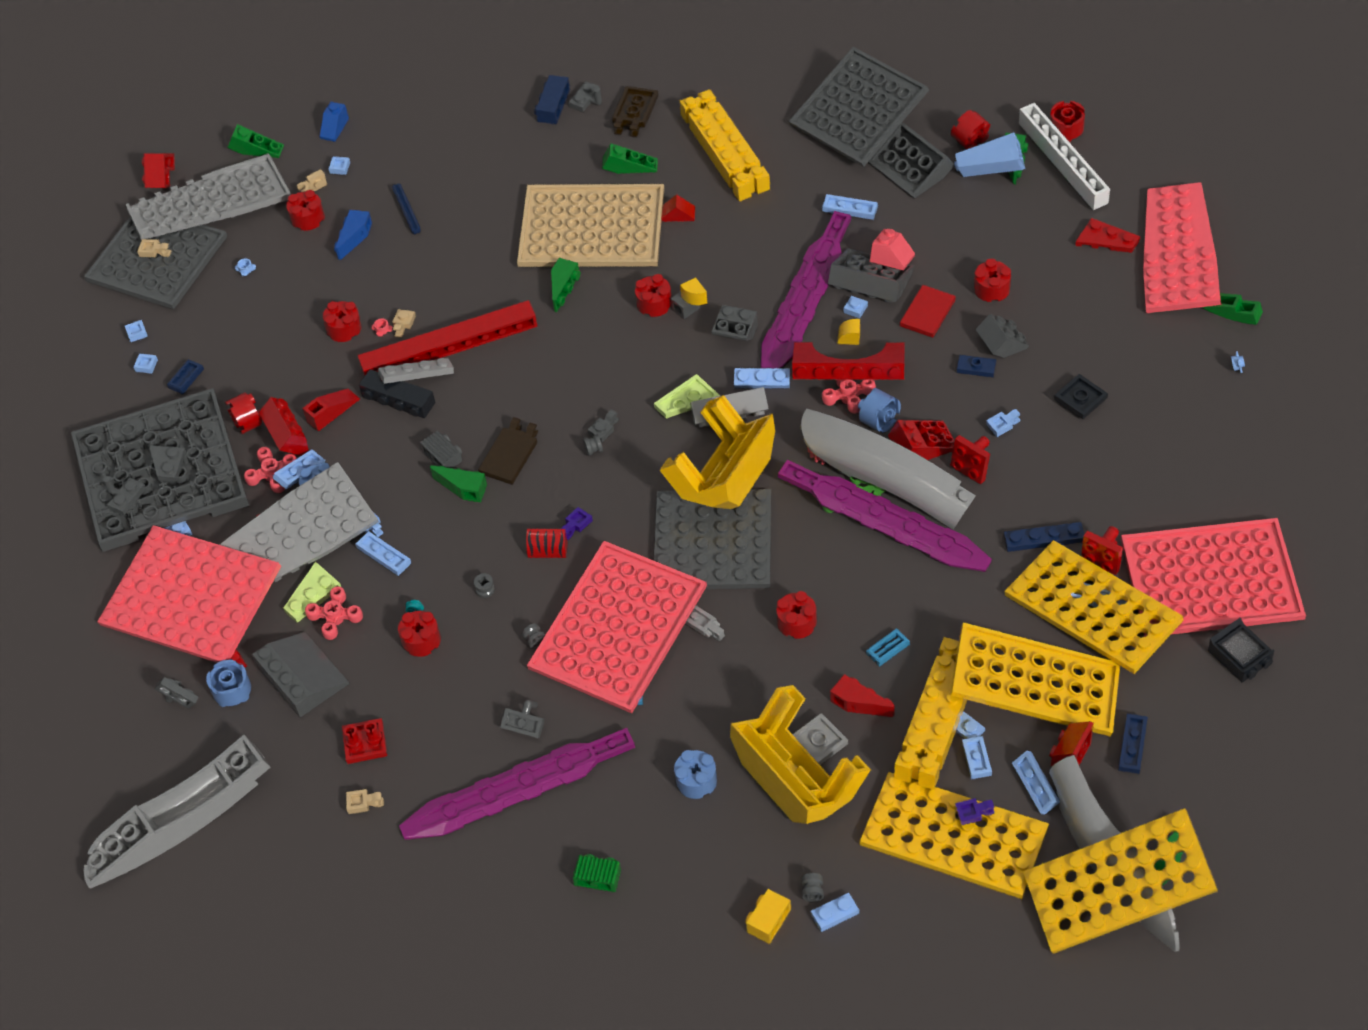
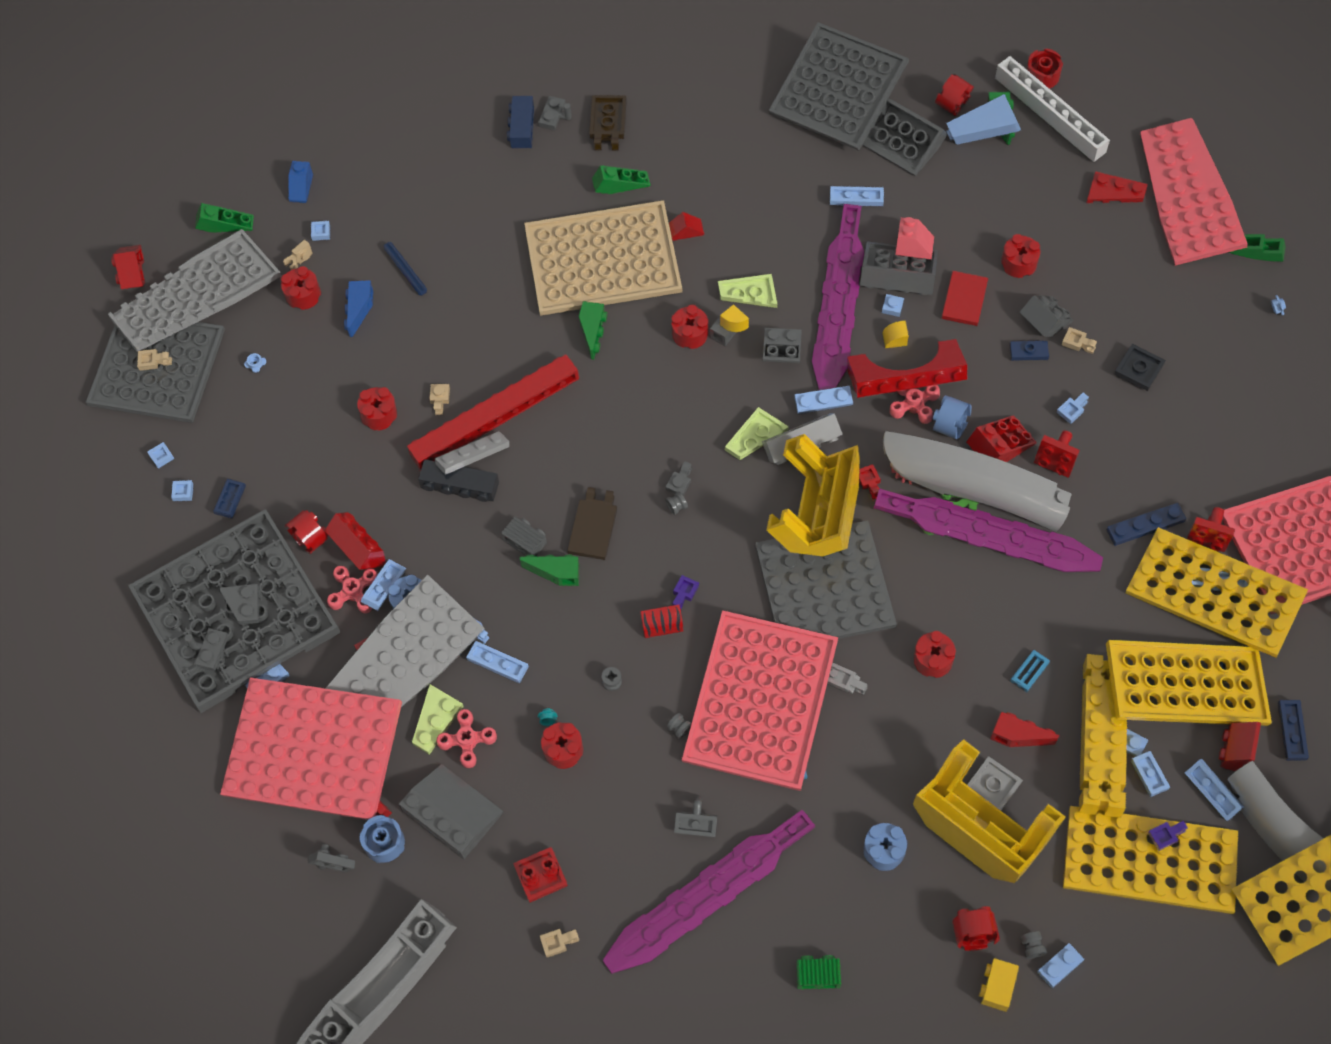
camera: 15 degrees left, 10 degrees up
(328, 407) = (393, 508): red slope -> none
(381, 327) = (419, 402): coral plate -> none
(721, 273) = (749, 290): none -> yellowish green wing
(725, 145) = (712, 147): yellow brick -> none
(758, 860) = (975, 928): none -> red brick
(783, 451) = (869, 479): none -> red plate
(1025, 362) = (1076, 339): none -> tan plate

